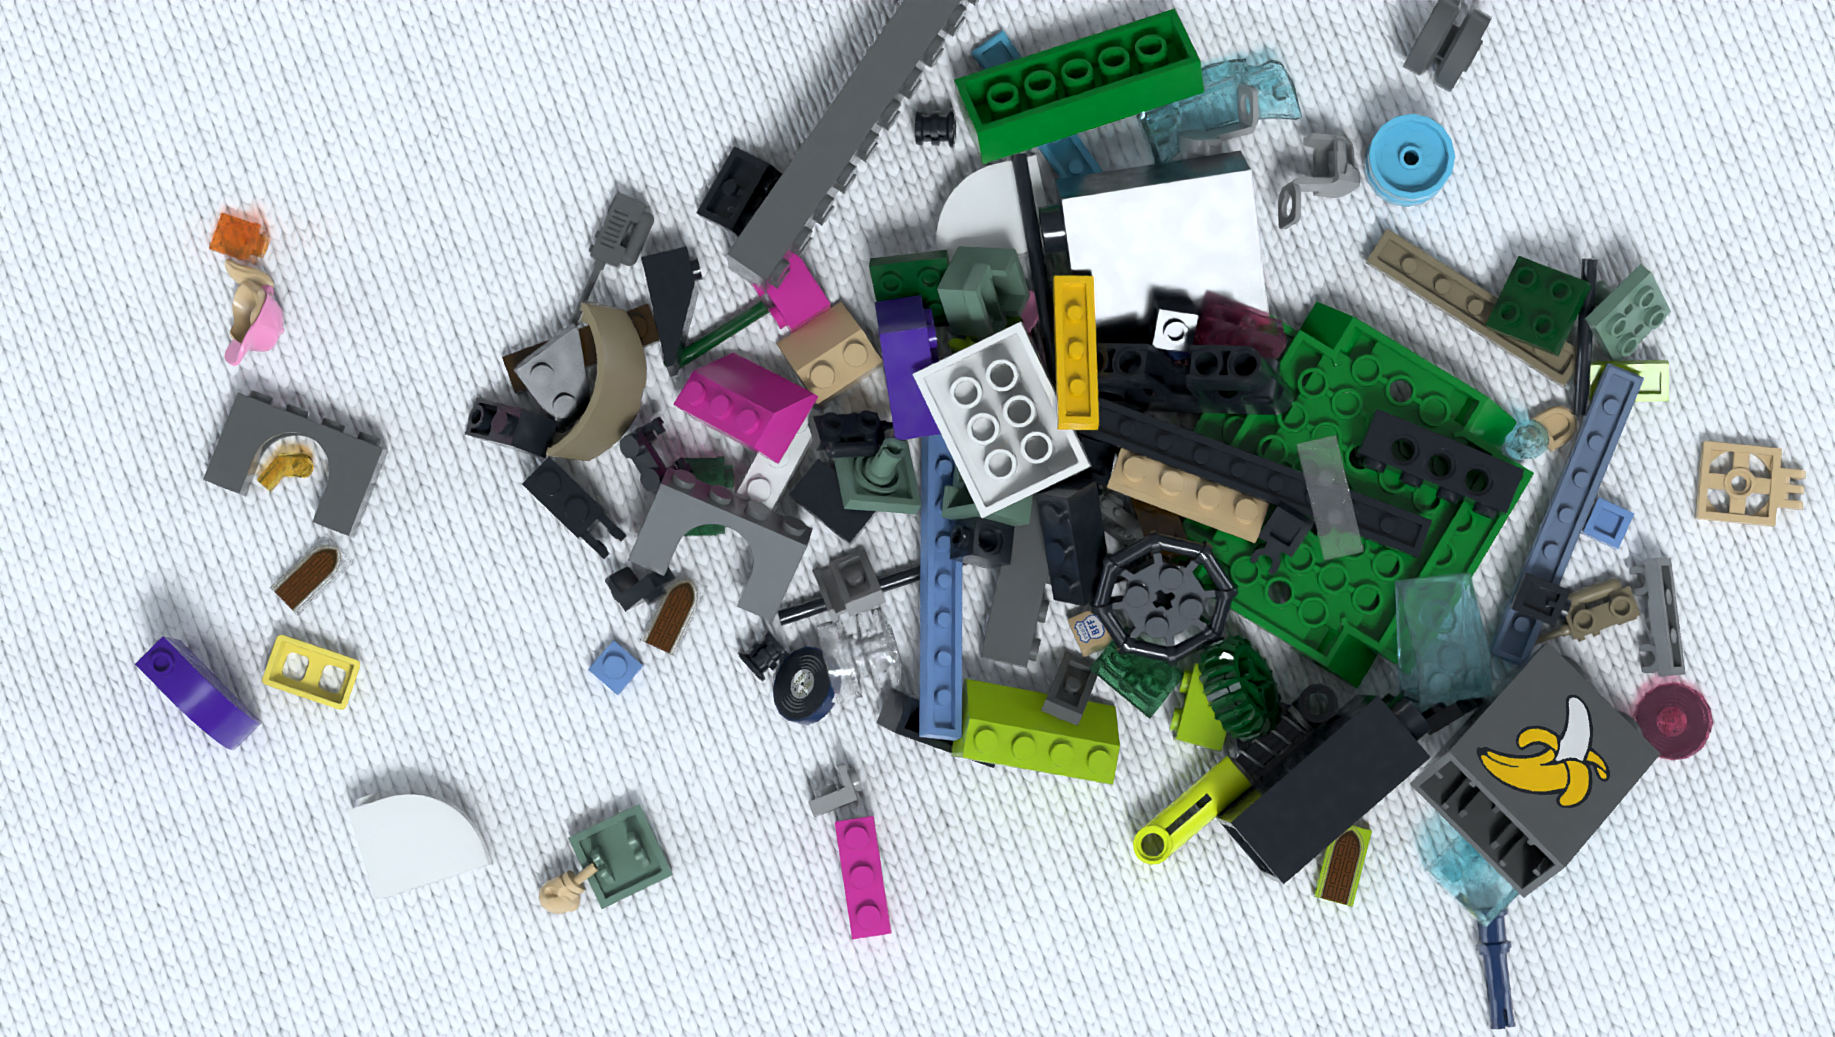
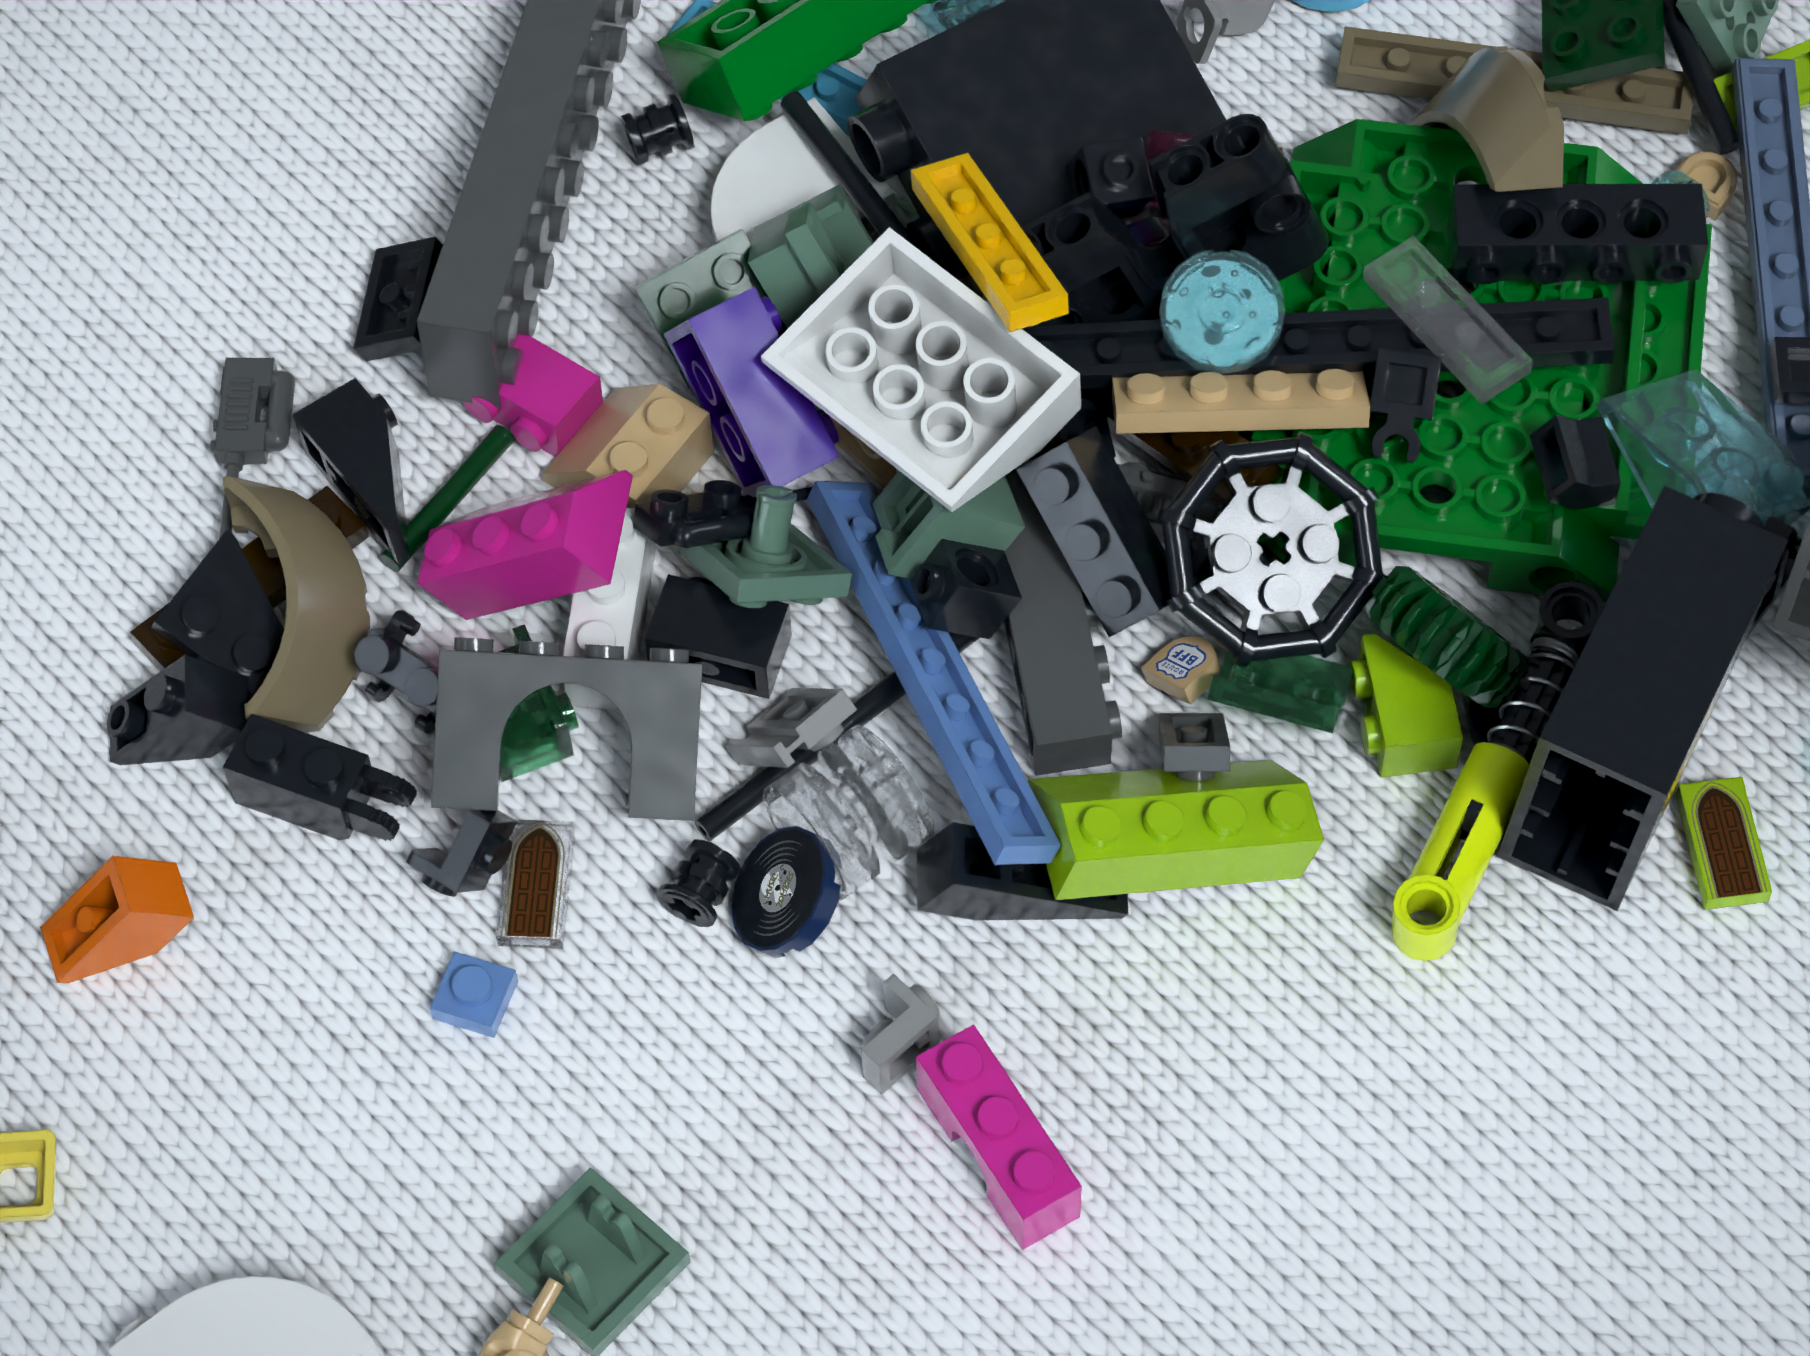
camera: 25 degrees left, 25 degrees down
(435, 544) = (117, 917): none -> orange slope
(1200, 439) = (1222, 311): none -> clear light blue tile
(1362, 616) = (1576, 462): none -> black piece
(1425, 371) = (1504, 118): none -> dark tan windscreen

